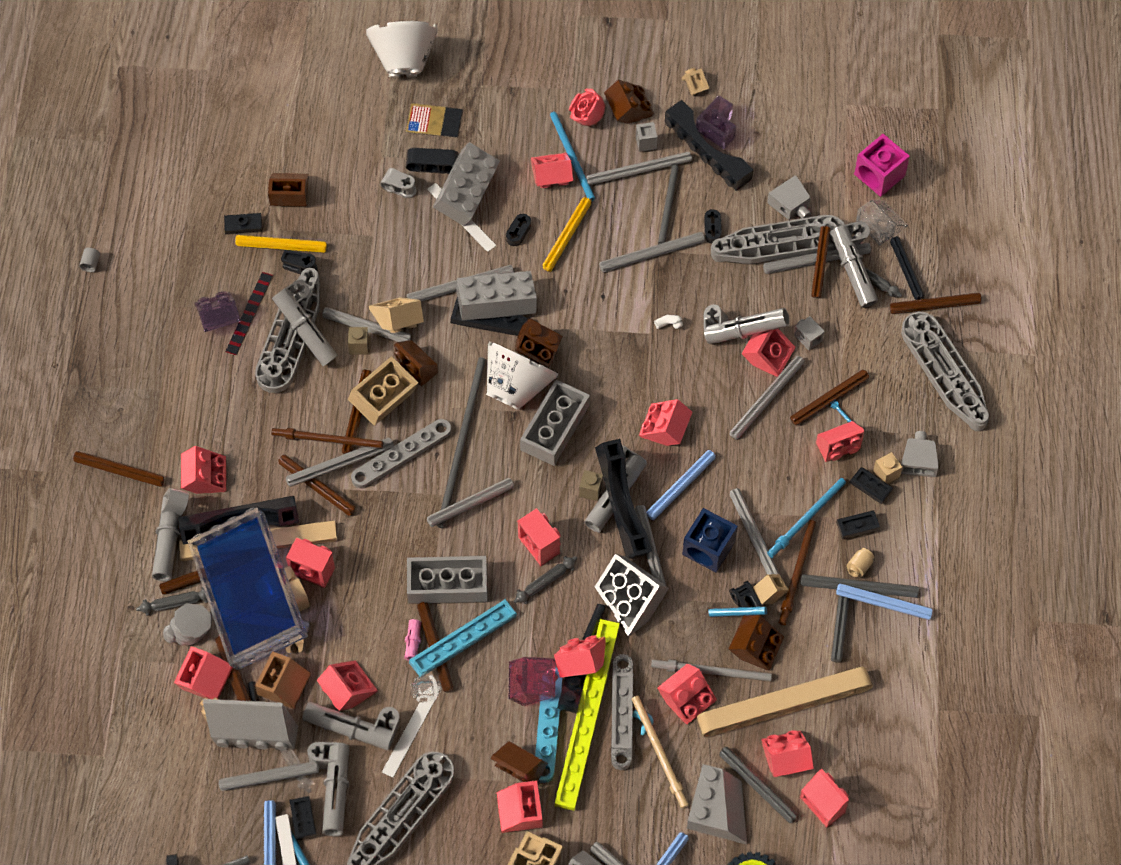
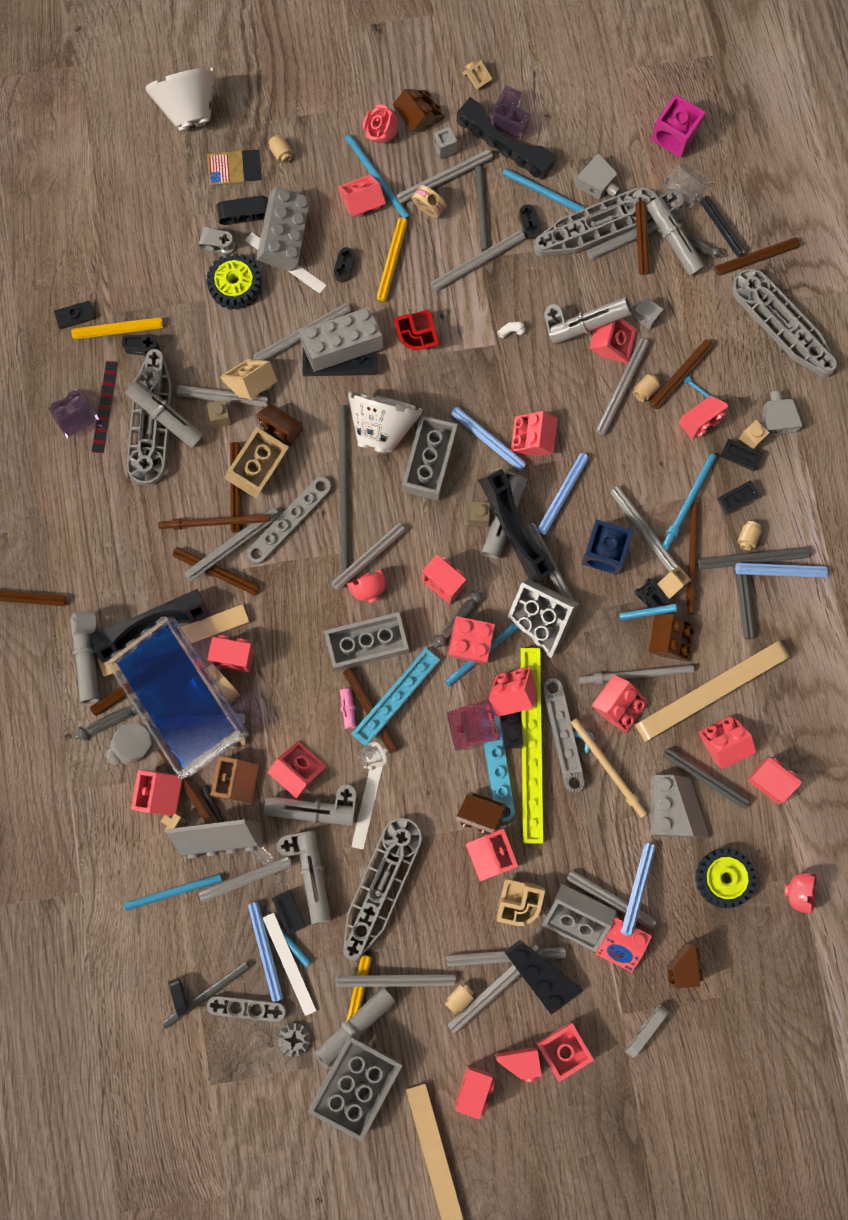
camera: 15 degrees left, 15 degrees up
(193, 774) = (172, 892): none -> dark azure piece
(203, 471) = (102, 582): coral slope -> none
(288, 189) = (110, 270): reddish brown slope -> none
(406, 211) = (230, 269): none -> wheel
(462, 528) = (368, 586): none -> coral cylinder
(483, 112) = (280, 149): none -> tan brick
(537, 343) = (393, 381): reddish brown slope -> none
(550, 598) = (470, 640): none -> coral brick
(559, 618) = (494, 643): none -> dark azure piece
(573, 302) = (417, 330): none -> red brick
(594, 621) = (515, 651): black piece -> none
(616, 187) = (429, 201): none -> tan head
(619, 418) = (488, 439): none -> light blue axle
(732, 199) = (542, 190): none -> dark azure piece
(790, 402) = (646, 387): none -> tan brick

